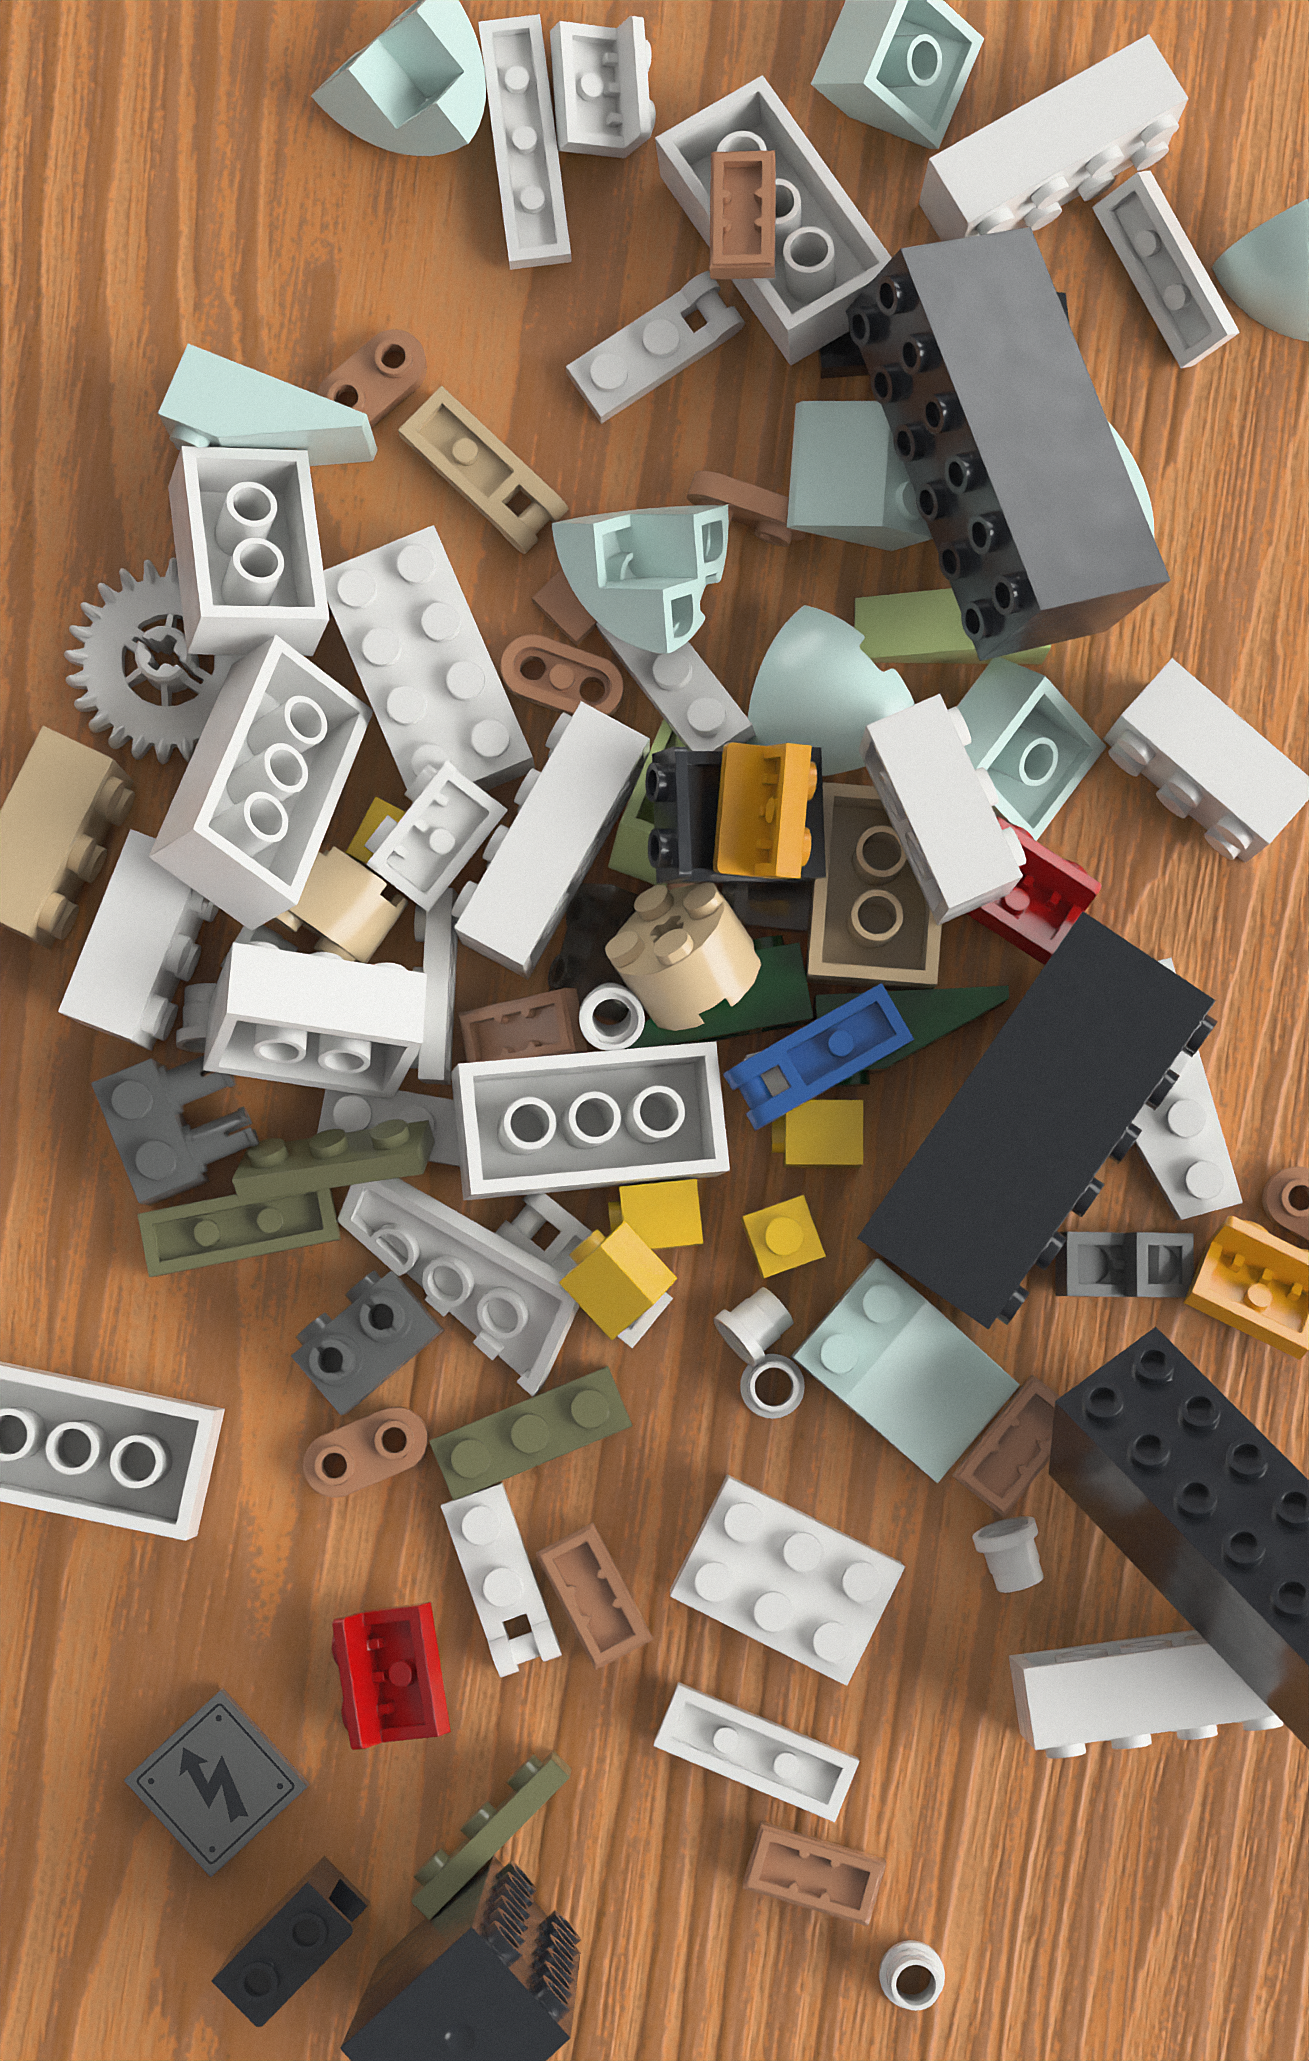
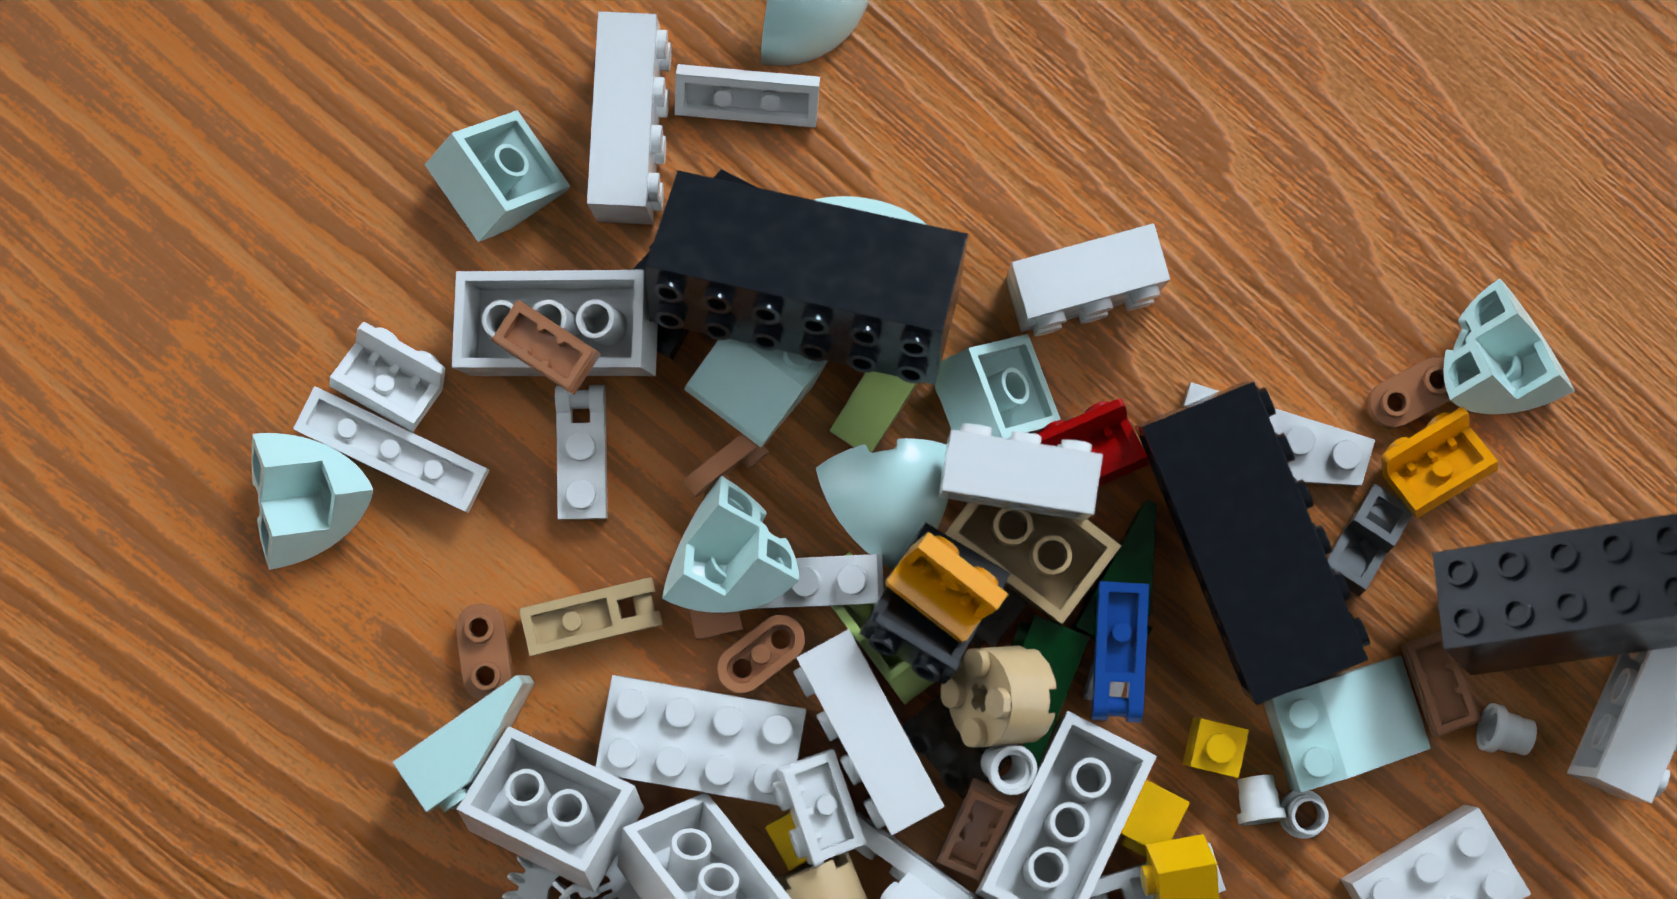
camera: 55 degrees left, 0 degrees up
(820, 1135) = (1167, 678): yellow brick -> none

